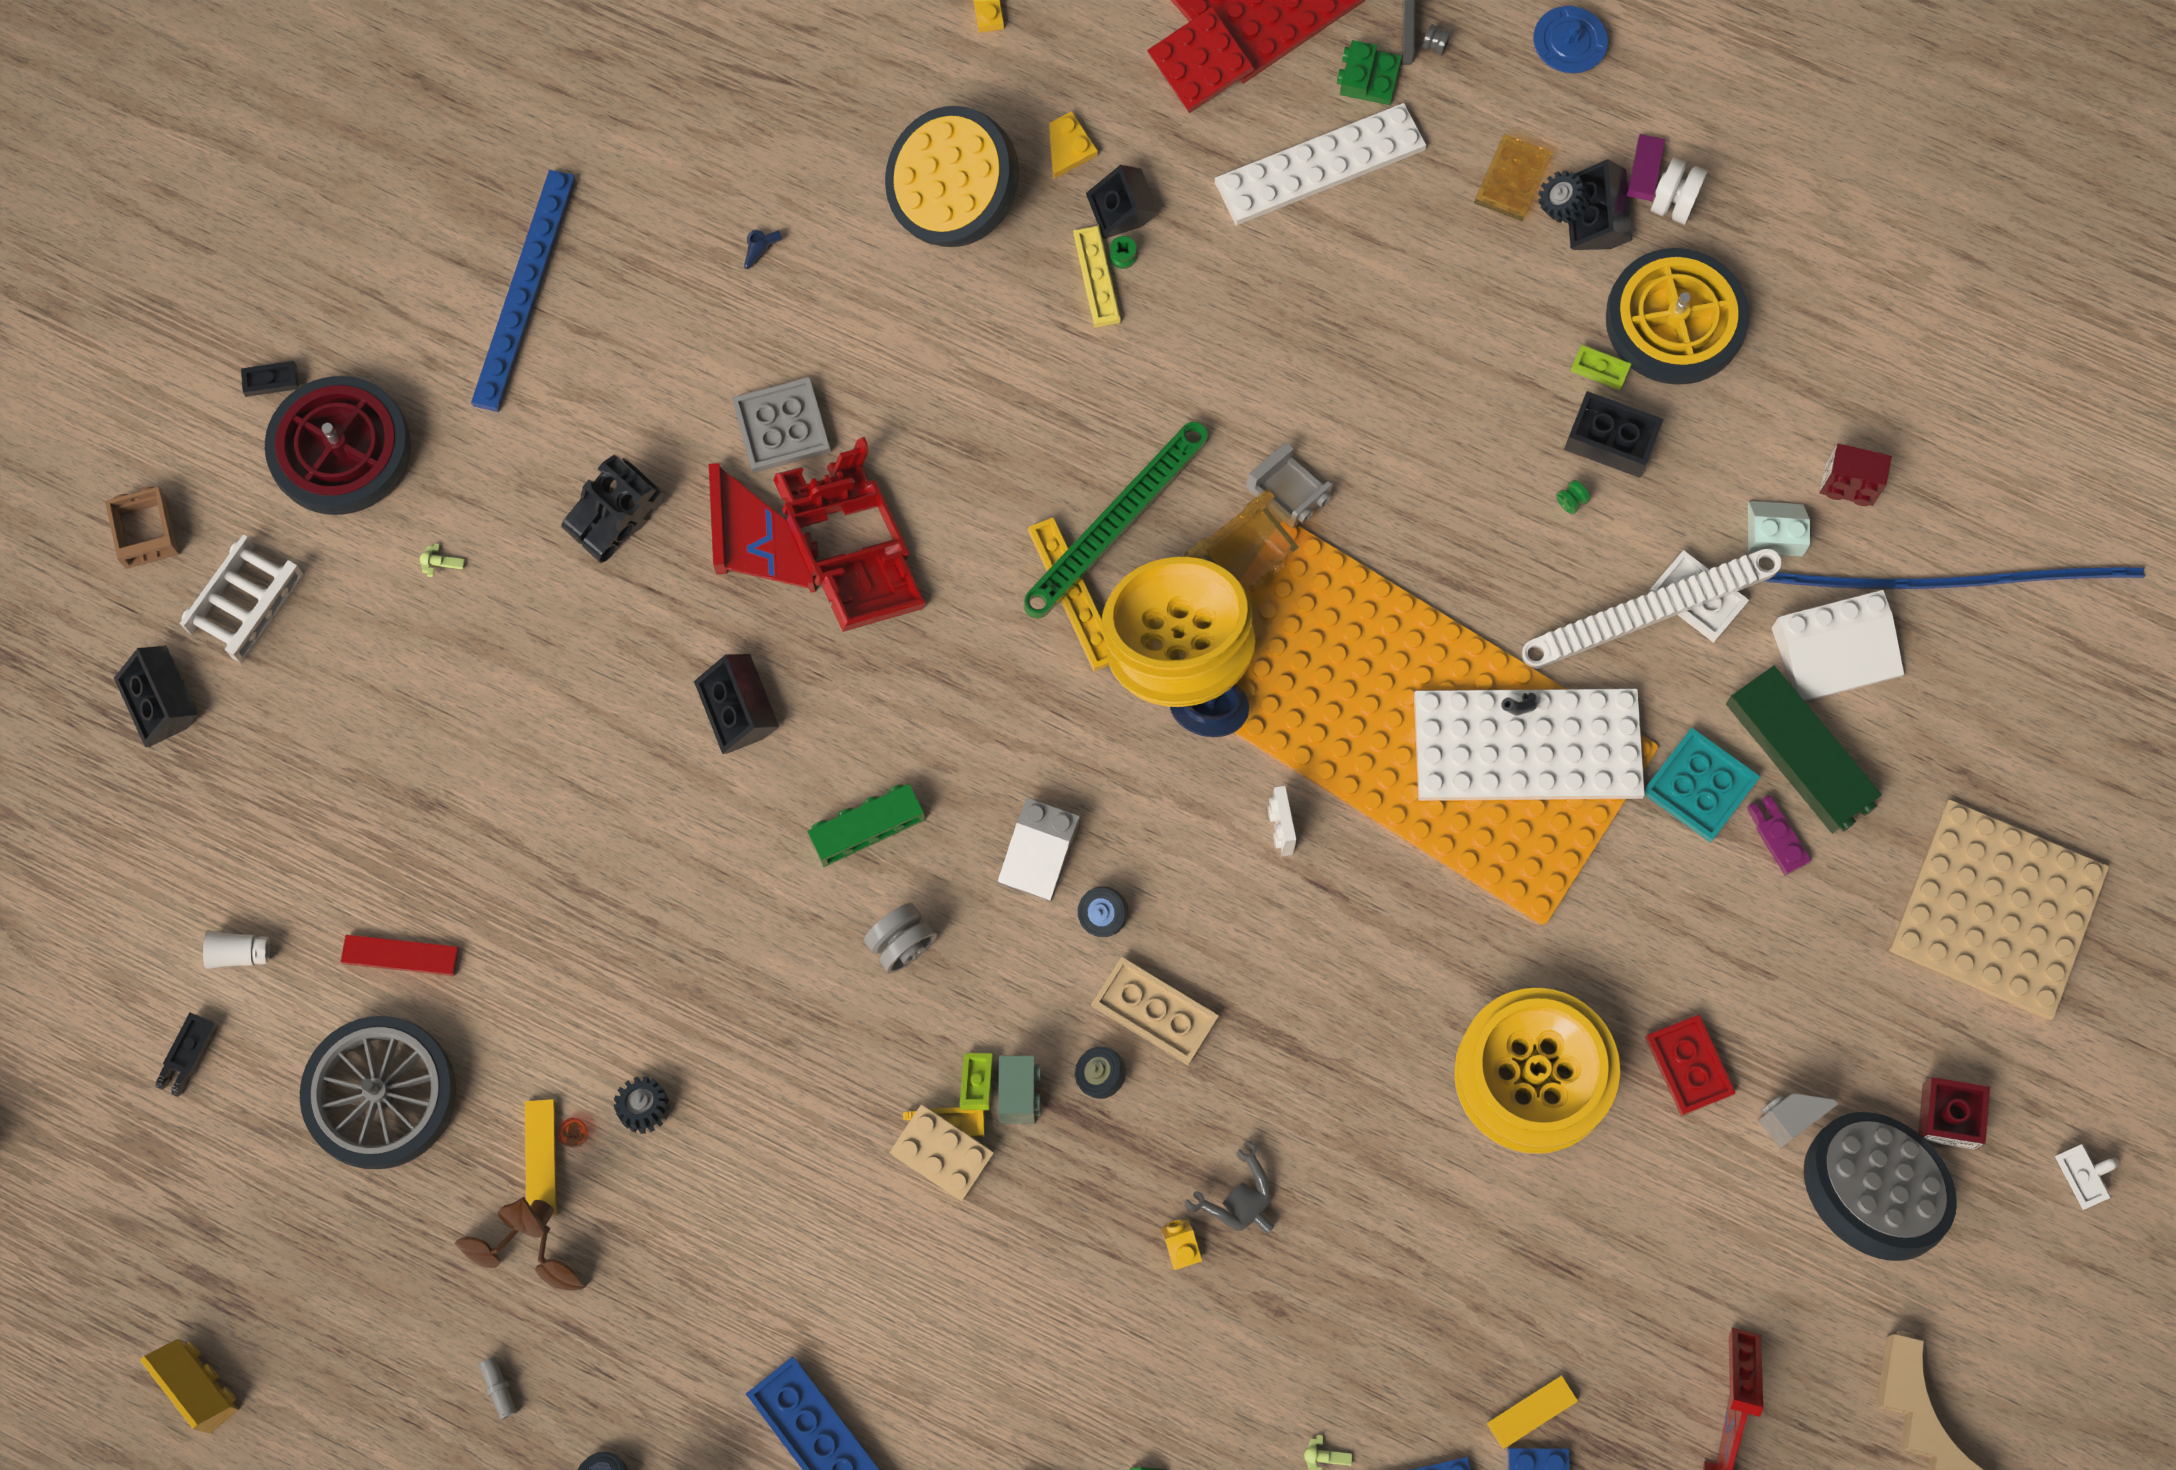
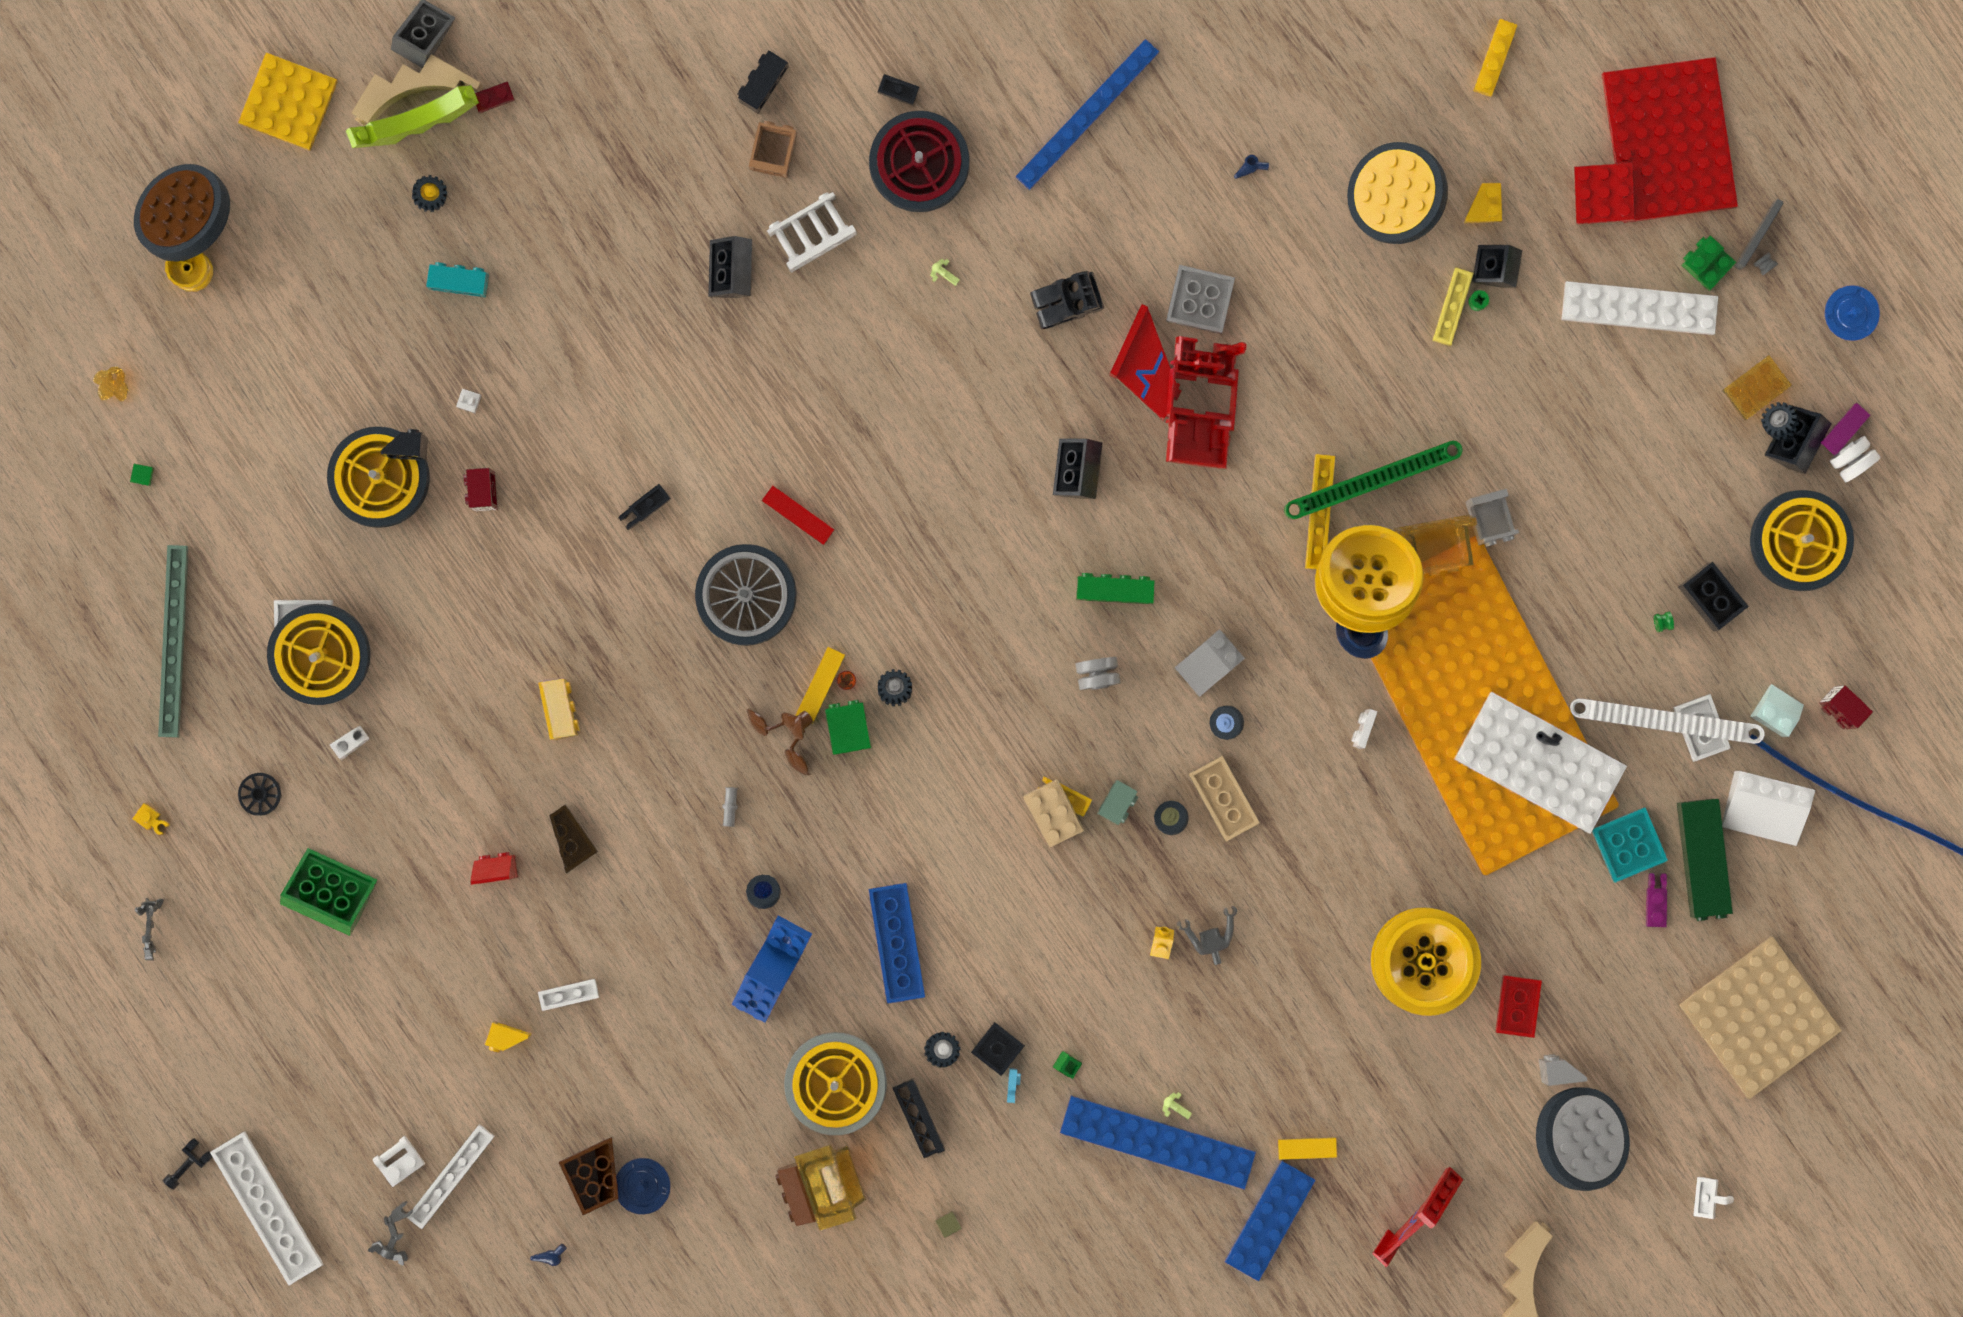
camera: 25 degrees right, 15 degrees up
(89, 455) = (762, 81): none -> black brick
(234, 949) = (703, 459): white plant -> none
(606, 1192) = (847, 727): none -> green panel
(976, 1081) = (1096, 782): lime plate -> none
(1600, 367) = (1733, 546): lime plate -> none
(1954, 1113) = (1653, 1121): dark red brick -> none

